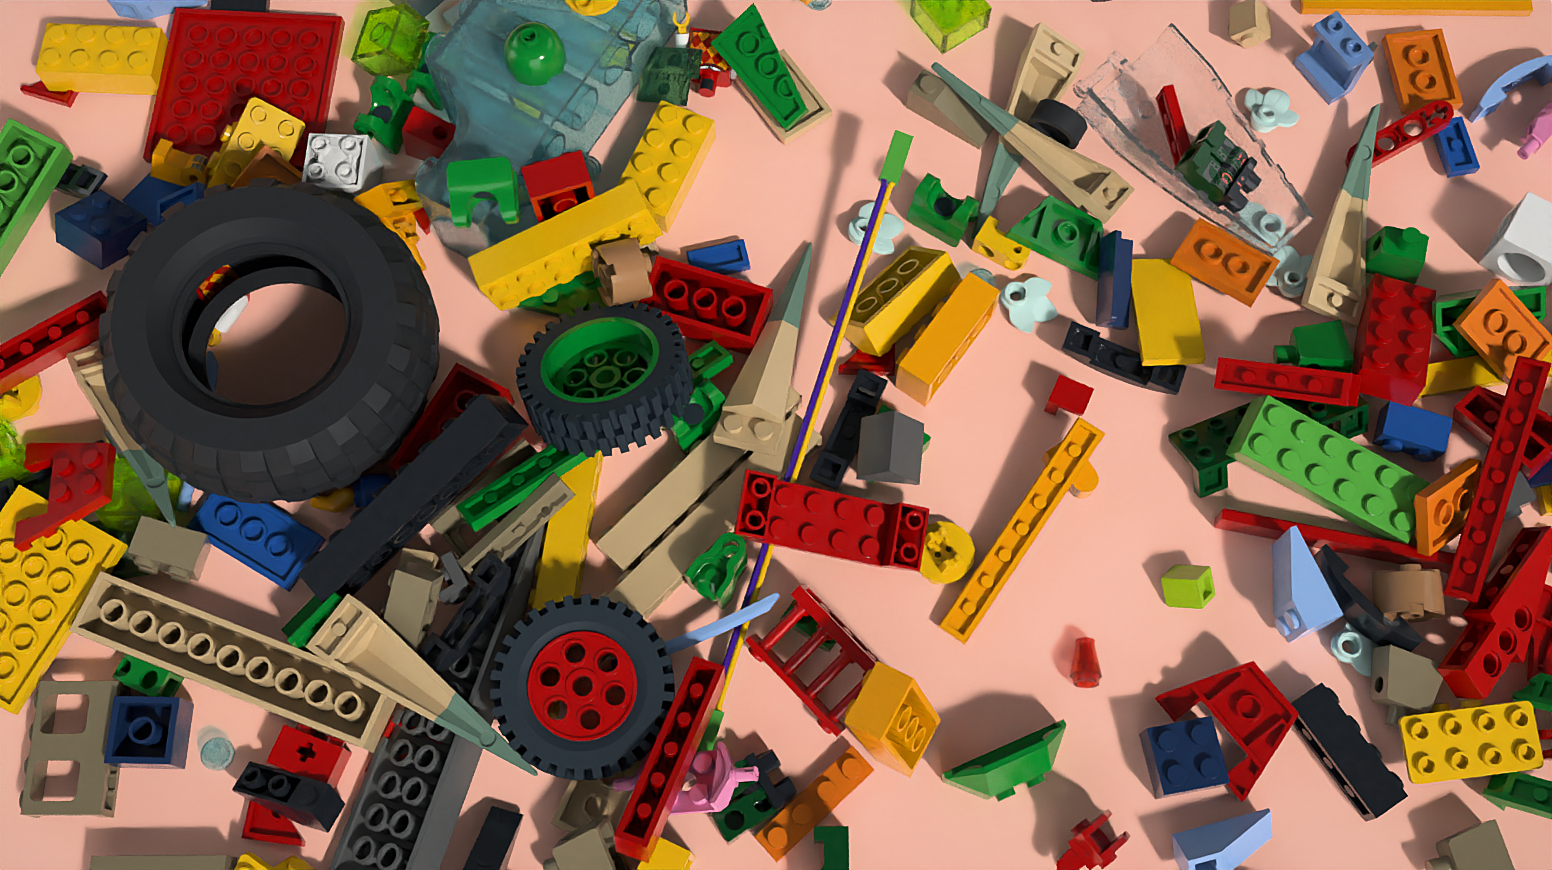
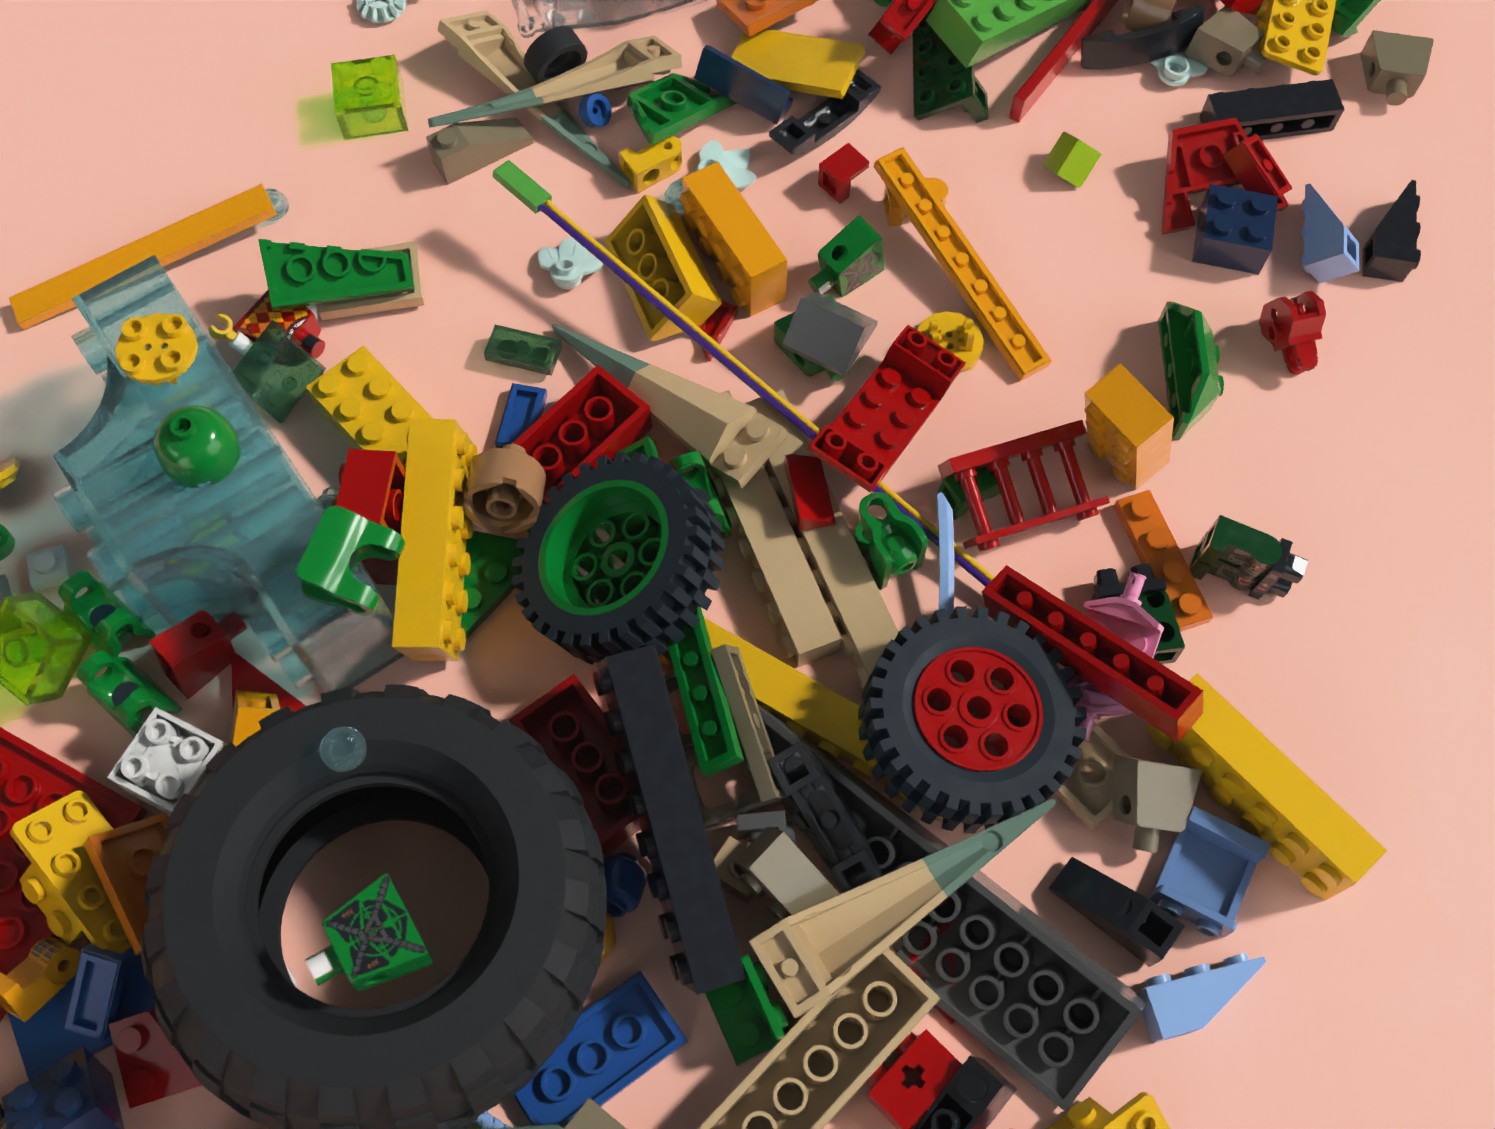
camera: 70 degrees left, 5 degrees down
(210, 335) = (370, 940): none -> torso
(334, 255) = (343, 749): none -> clear light blue plate
(723, 496) = (809, 492): none -> red slope
(776, 232) = (523, 350): none -> clear green plate
(844, 439) = (778, 370): black slope -> none
(941, 213) = (595, 192): green piece -> none
(975, 438) = (849, 259): none -> green torso
(1028, 179) = (595, 110): none -> blue tile
(1085, 664) = (1114, 270): clear red cone -> none
(1256, 757) = (1257, 168): none -> red slope
(1299, 590) = (1114, 72): light blue slope -> none

